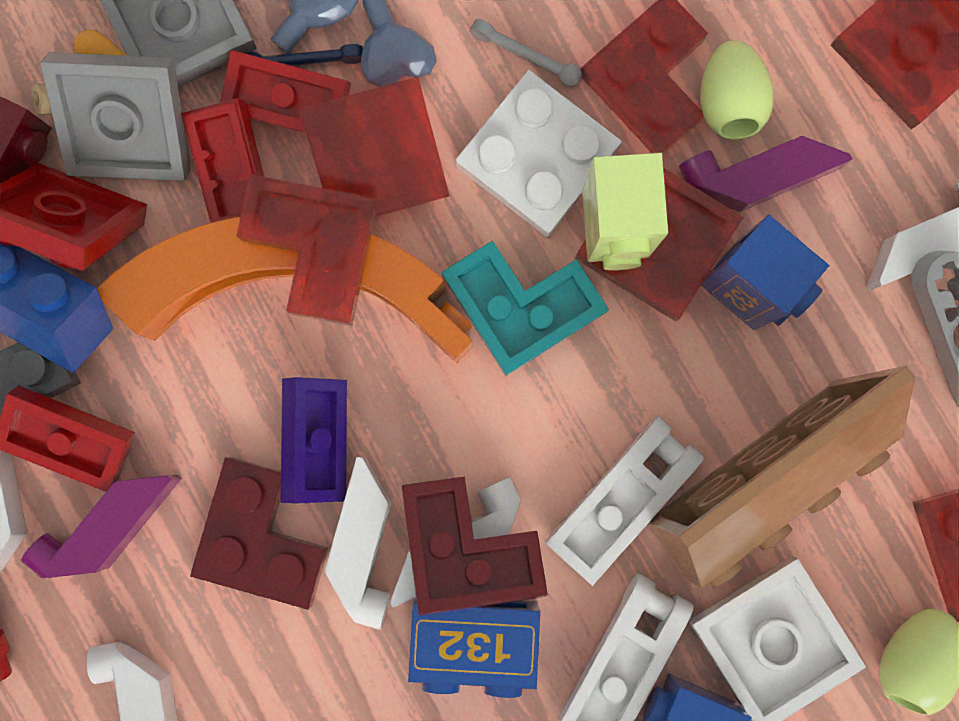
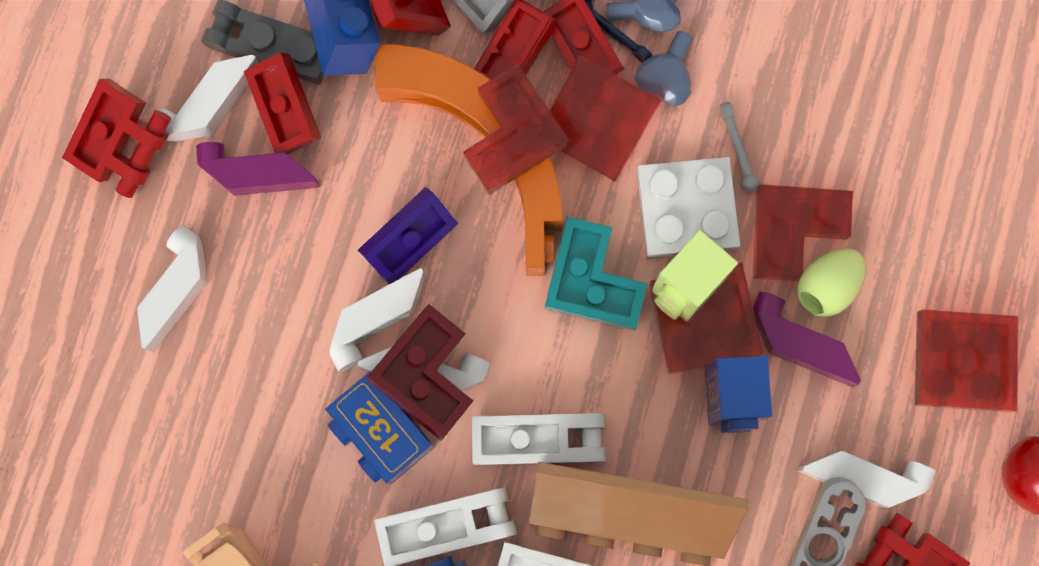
camera: 50 degrees right, 5 degrees down
(242, 549) = (312, 255): dark red plate -> none

